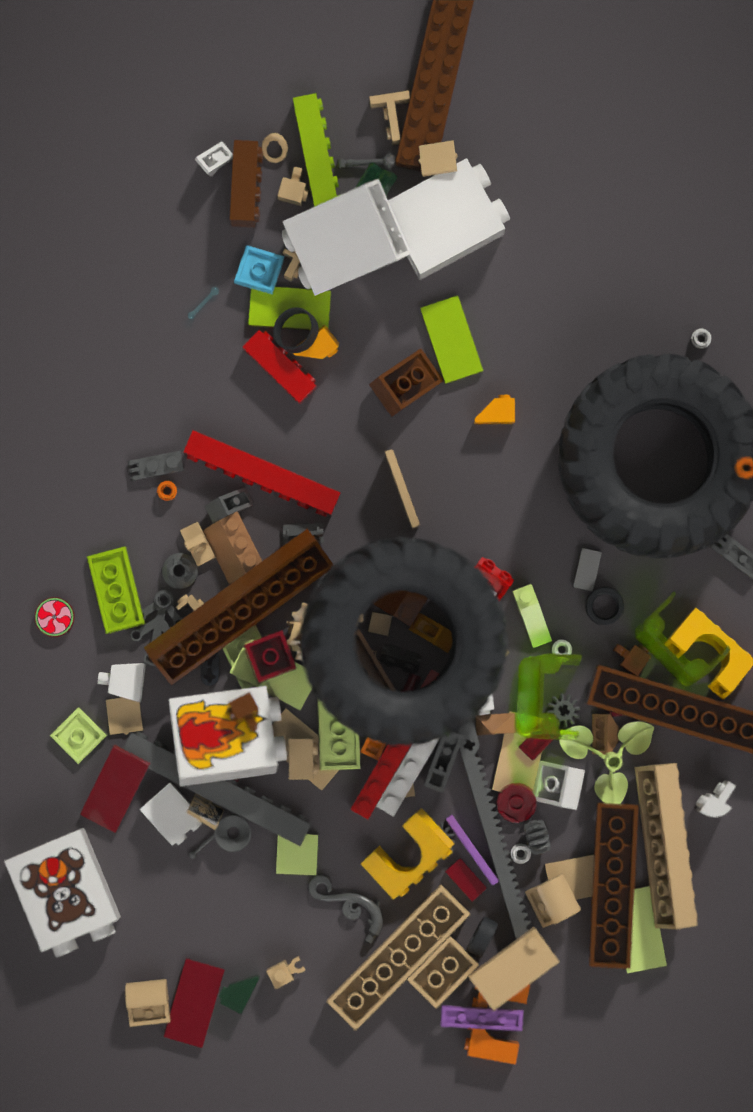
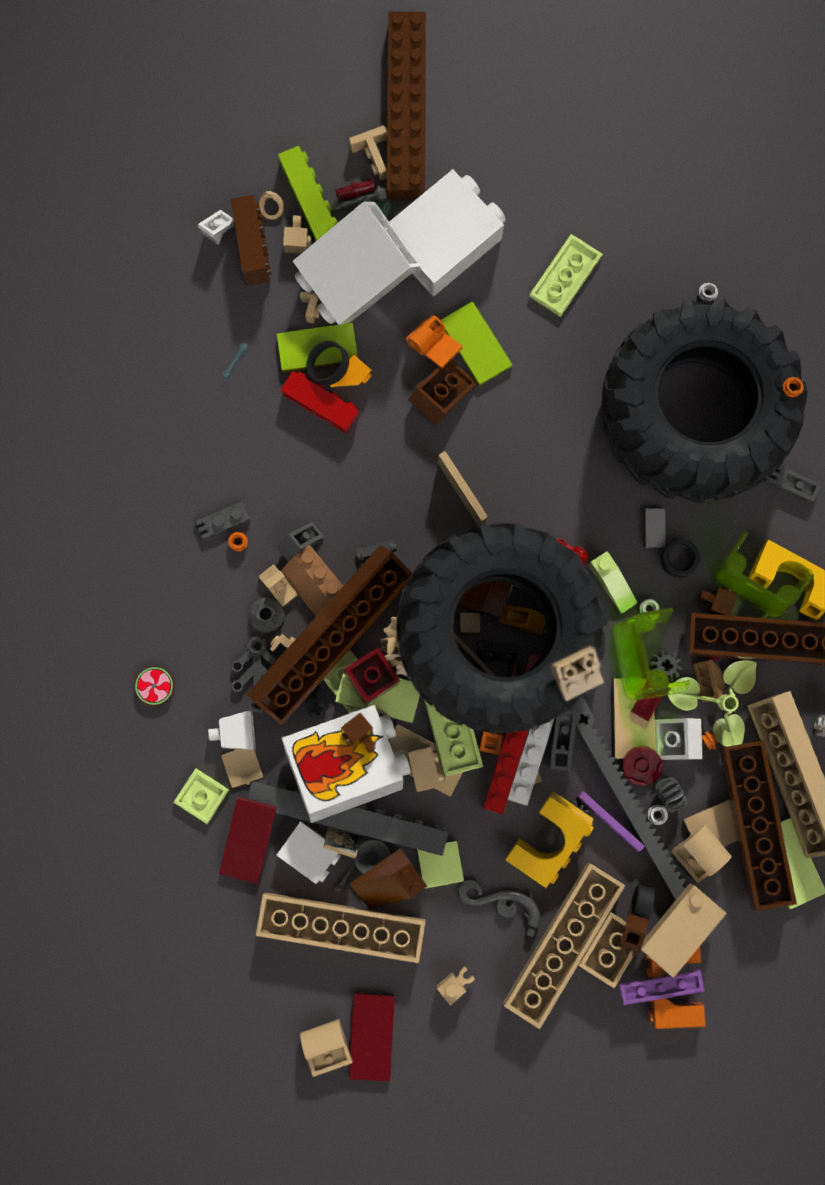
camera: 15 degrees left, 5 degrees down
(64, 892) = (218, 956): white brick -> none
(116, 590) = (208, 647): lime tile -> none
(187, 892) = (340, 927): none -> tan brick
(238, 993) = (414, 1017): clear green slope -> none
(243, 859) = (389, 881): none -> reddish brown slope
(259, 269) = (281, 317): medium azure tile -> none
(263, 473) = (324, 504): red brick -> none
(364, 150) = (355, 189): none -> dark red pin
(407, 329) = (433, 342): none -> orange piece
(438, 158) = (426, 175): tan piece -> none
(462, 704) = (577, 673): none -> tan brick
(465, 961) = (634, 933): none -> reddish brown brick
(466, 879) = (610, 852): dark red tile -> none
(496, 724) = (604, 694): medium nougat slope -> none
(498, 411) = (536, 399): light orange slope -> none
(560, 288) = (565, 275): none -> yellowish green tile
(588, 793) = (709, 741): none -> orange plate

